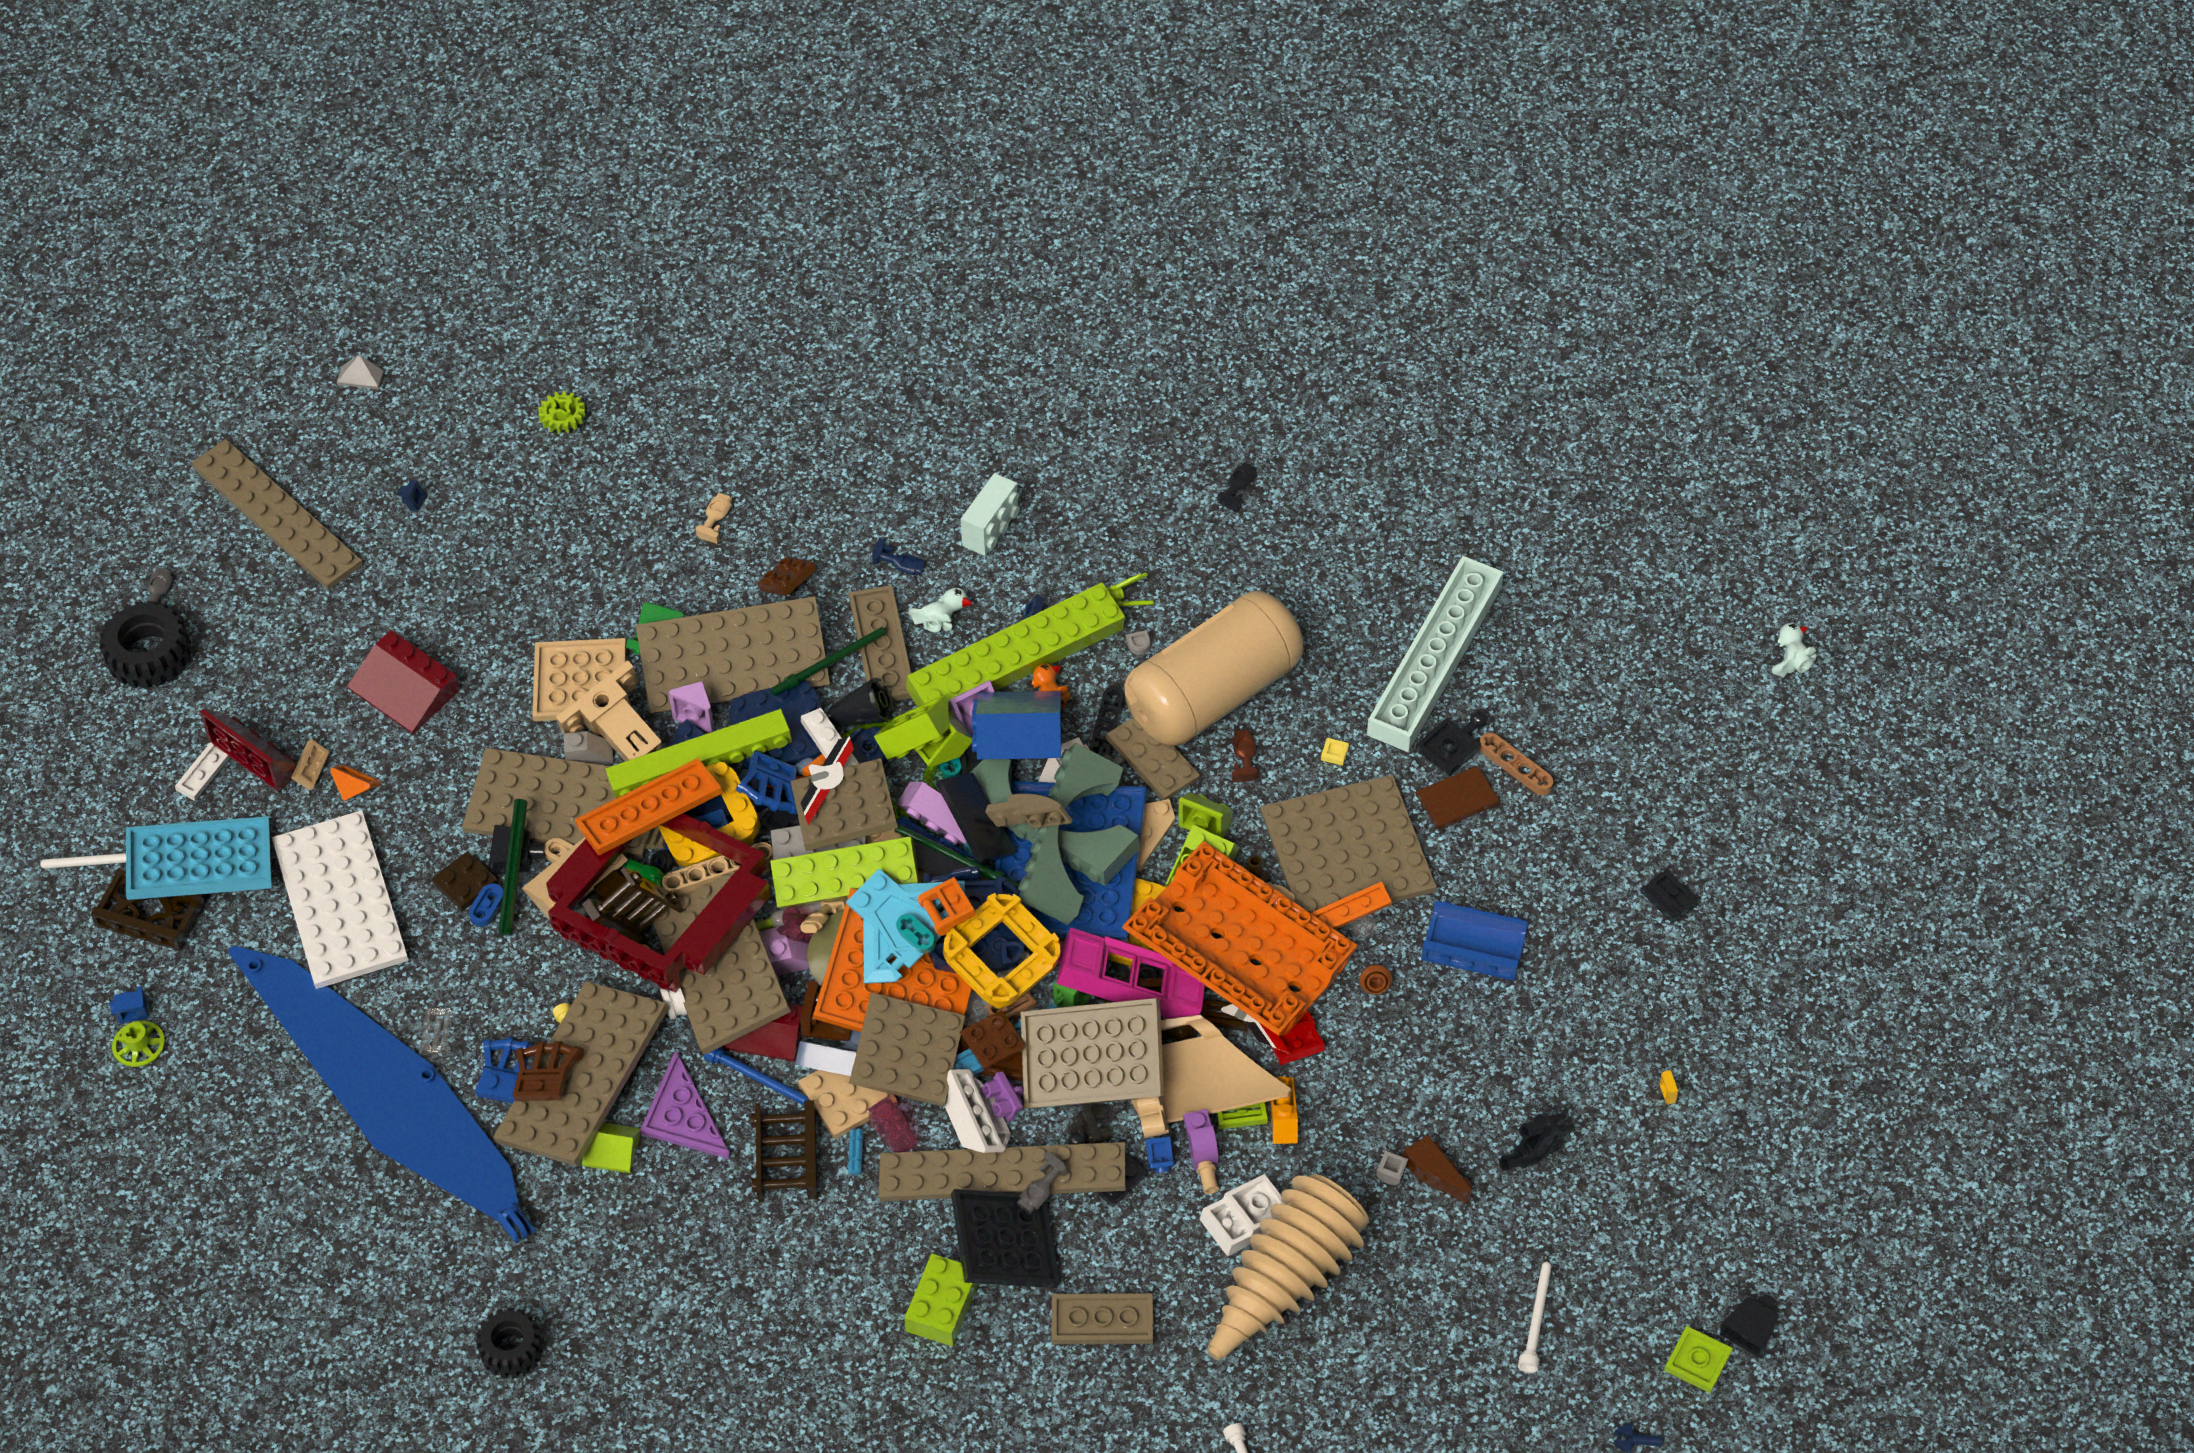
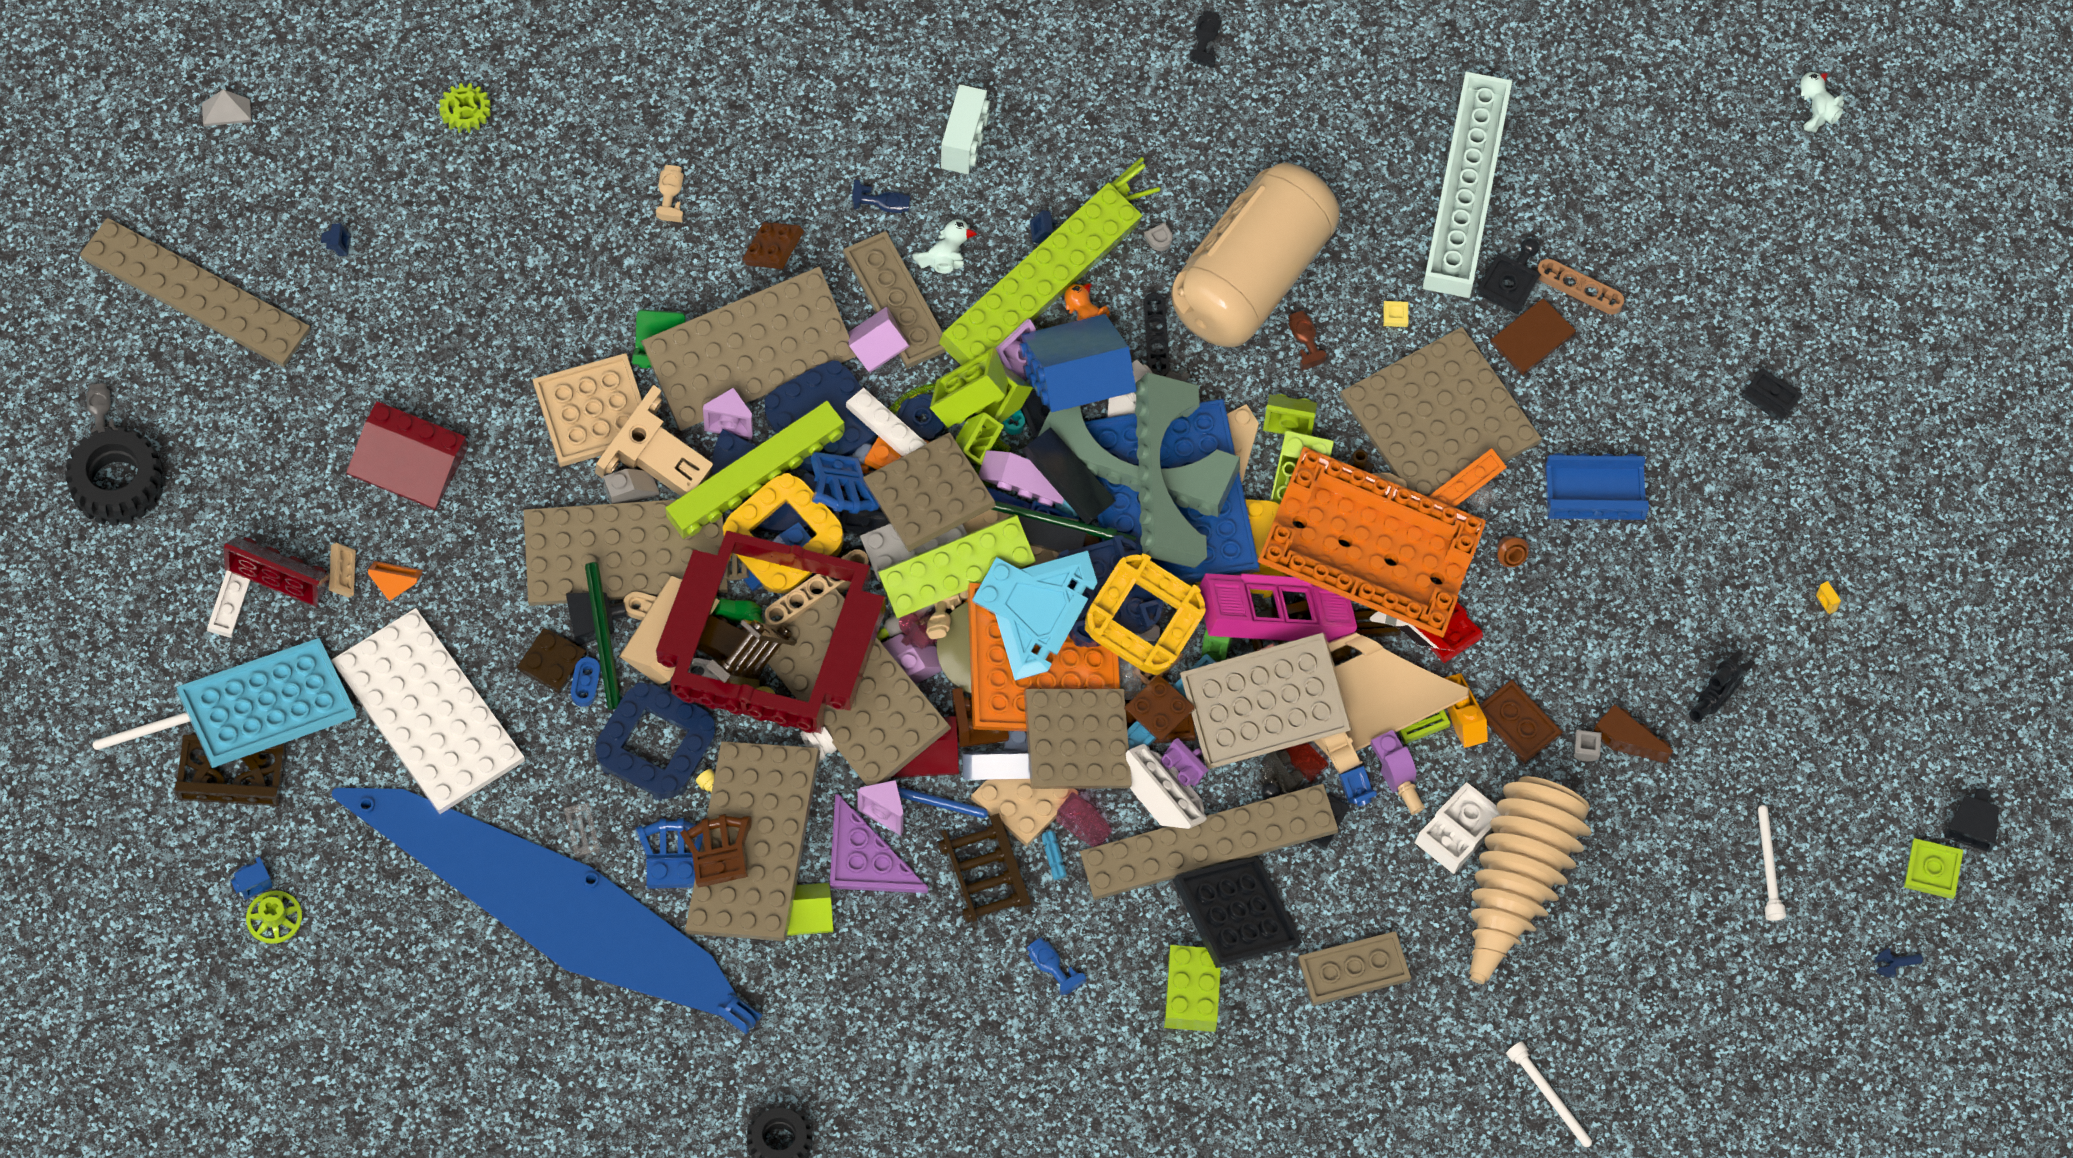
camera: 20 degrees left, 10 degrees up
(506, 994) = (639, 772): none -> dark blue plate
(648, 806) = (732, 542): orange plate -> none
(659, 856) = (744, 593): black plate -> none
(710, 1067) = (882, 804): none -> lavender slope
(793, 680) = (823, 363): dark green bar -> none
(817, 1244) = (1048, 961): none -> blue piece
(826, 777) = (901, 466): sticker -> none
(850, 673) = (877, 340): none -> lavender slope
(864, 705) = (903, 375): black cone -> none
(907, 770) = (975, 439): none -> lime torso
(912, 938) = (1058, 612): teal beam -> none
(952, 900) = (1087, 577): orange plate -> none
(962, 874) = (1076, 542): dark blue piece -> none
(1030, 809) = (1135, 457): dark tan slope -> none
(1039, 1190) = (1255, 854): flat silver piece -> none
(1119, 1120) = (1307, 760): none -> clear red tile
(1155, 763) = (1221, 368): dark tan plate -> none
(1334, 1133) = (1519, 721): none -> reddish brown tile

